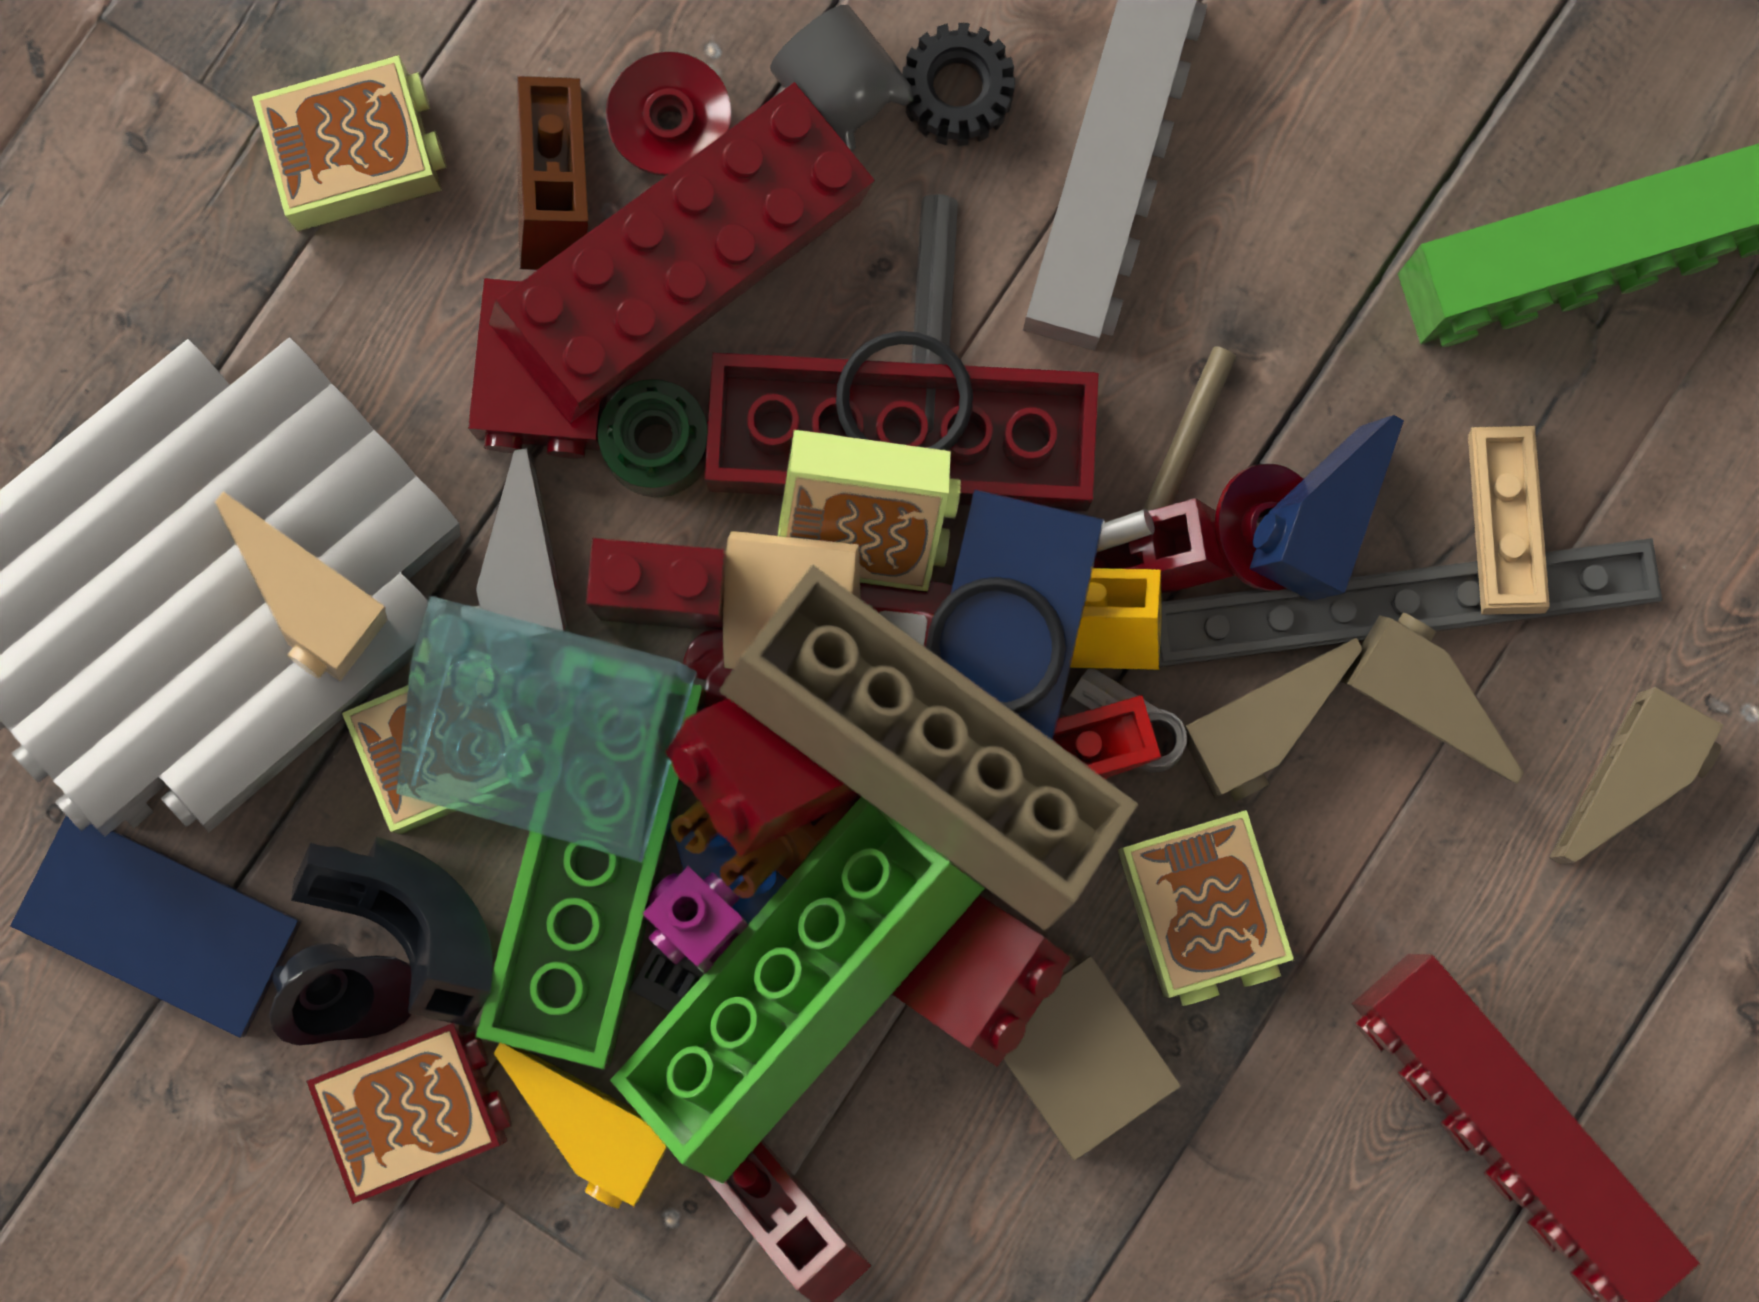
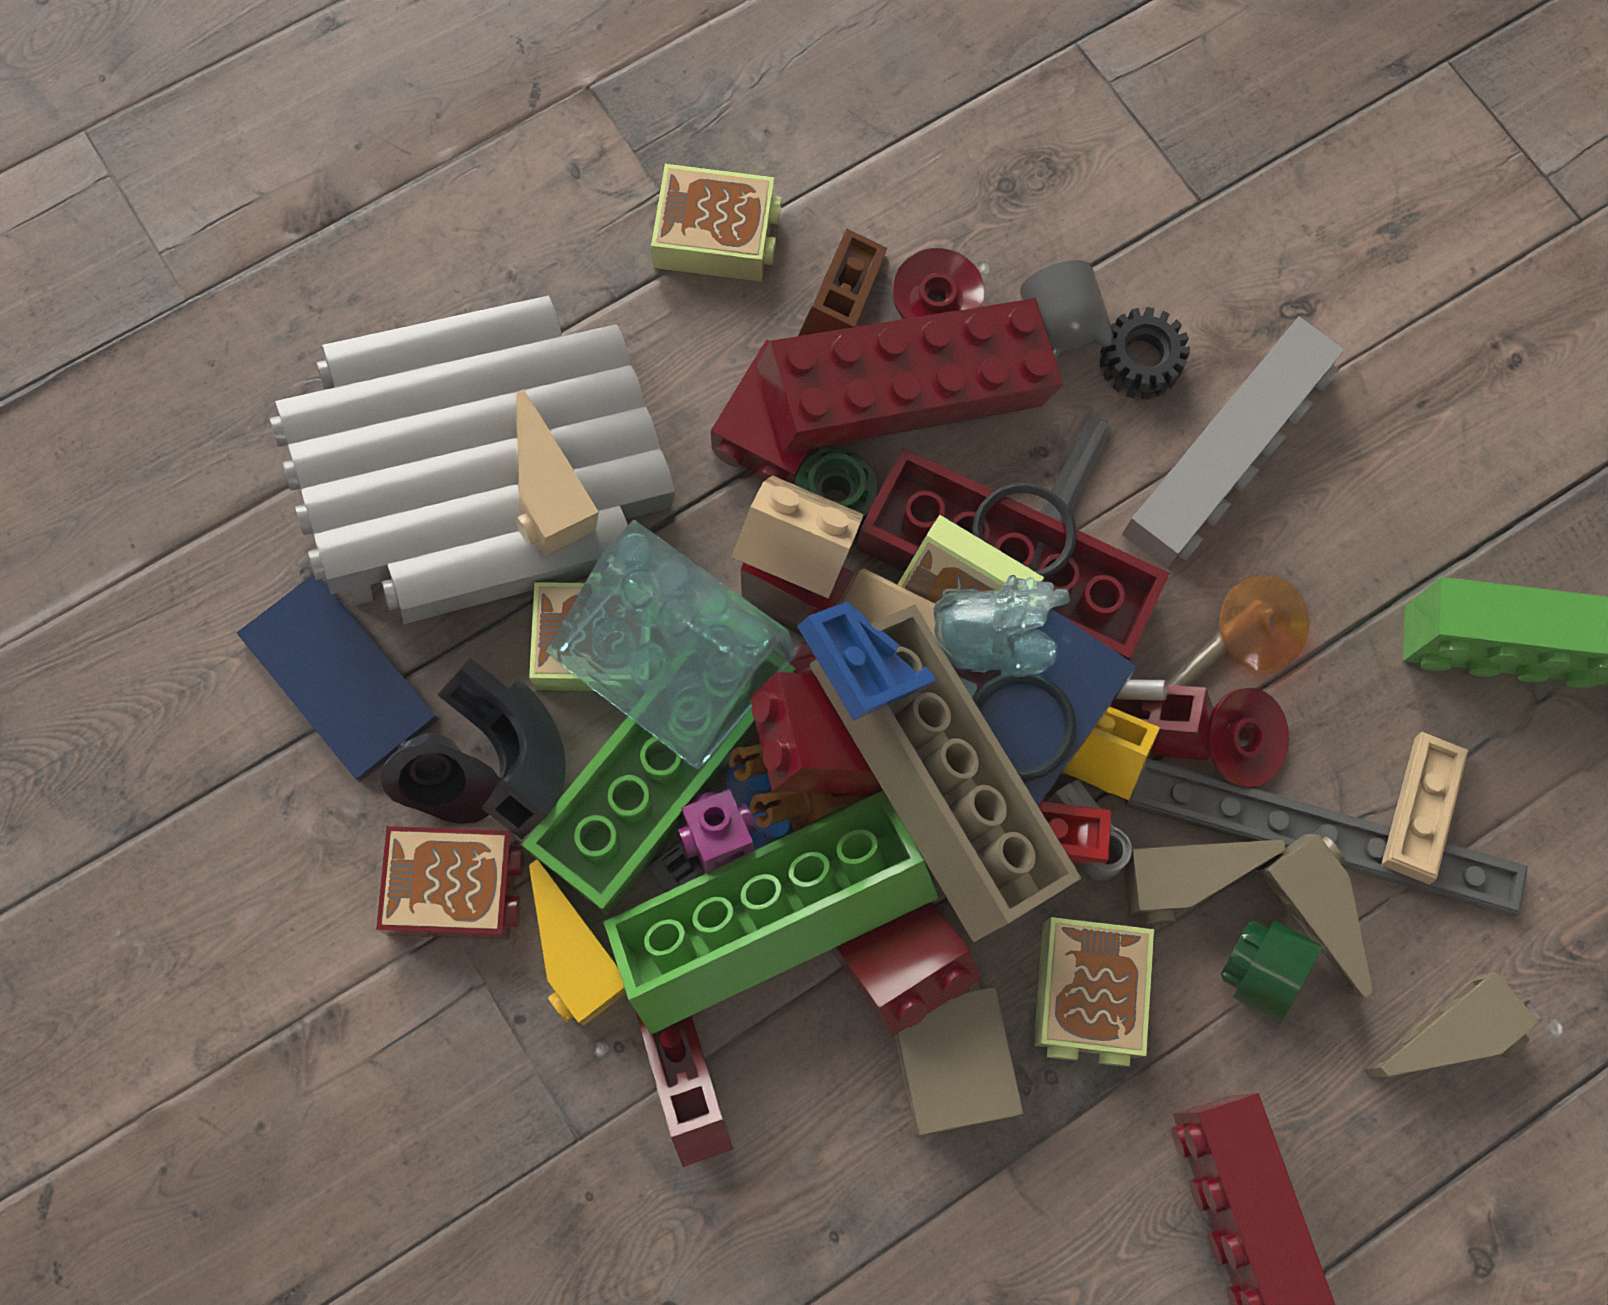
camera: 20 degrees right, 10 degrees down
(519, 562) = (709, 526): light grey slope -> none
(638, 533) = (797, 535): none -> tan slope
(779, 675) = (860, 660): none -> blue wing
(900, 552) = (999, 627): none -> clear light blue helmet
(1212, 379) = (1246, 622): none -> clear orange dish
(1320, 525) = (1284, 752): dark blue slope -> none
(1395, 793) = (1270, 967): none -> dark green piece

